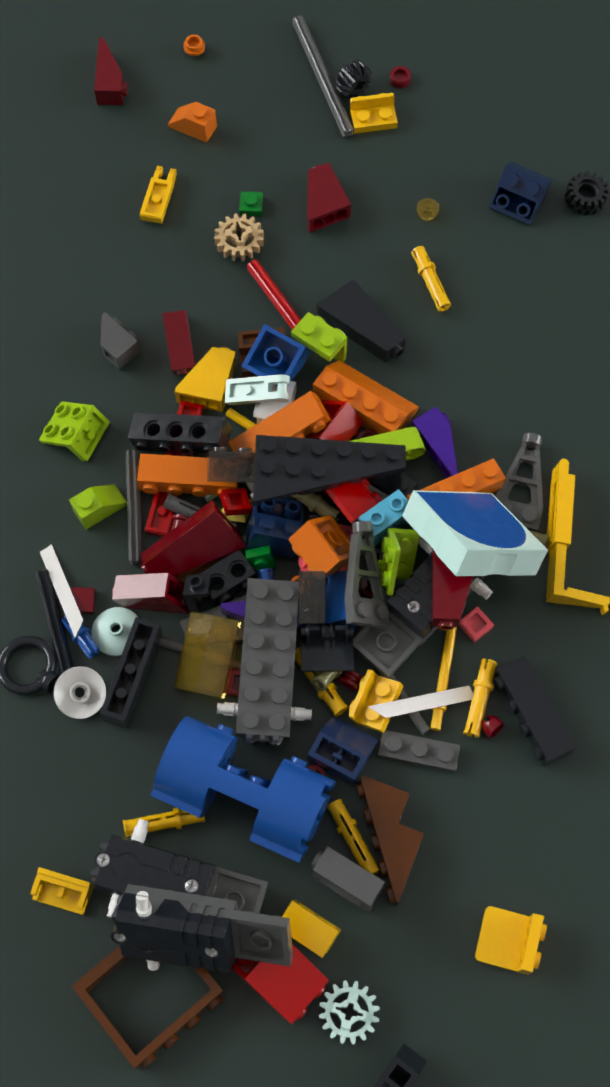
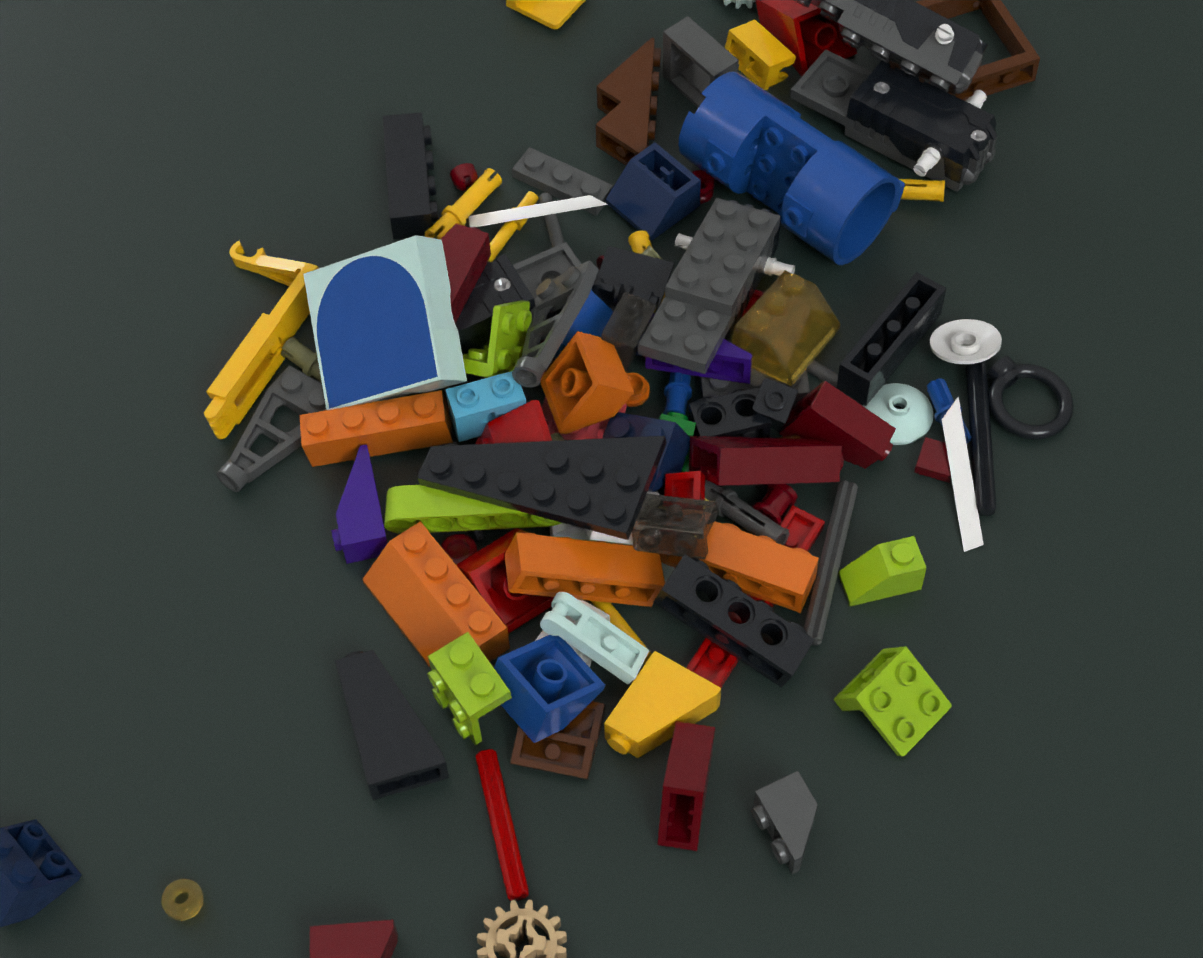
camera: 160 degrees left, 10 degrees down
(61, 891) = (1030, 160): yellow hinge -> none
(338, 810) = (674, 110): yellow pin -> none
(373, 691) = (593, 231): yellow bracket -> none
(427, 271) = (242, 780): yellow pin -> none

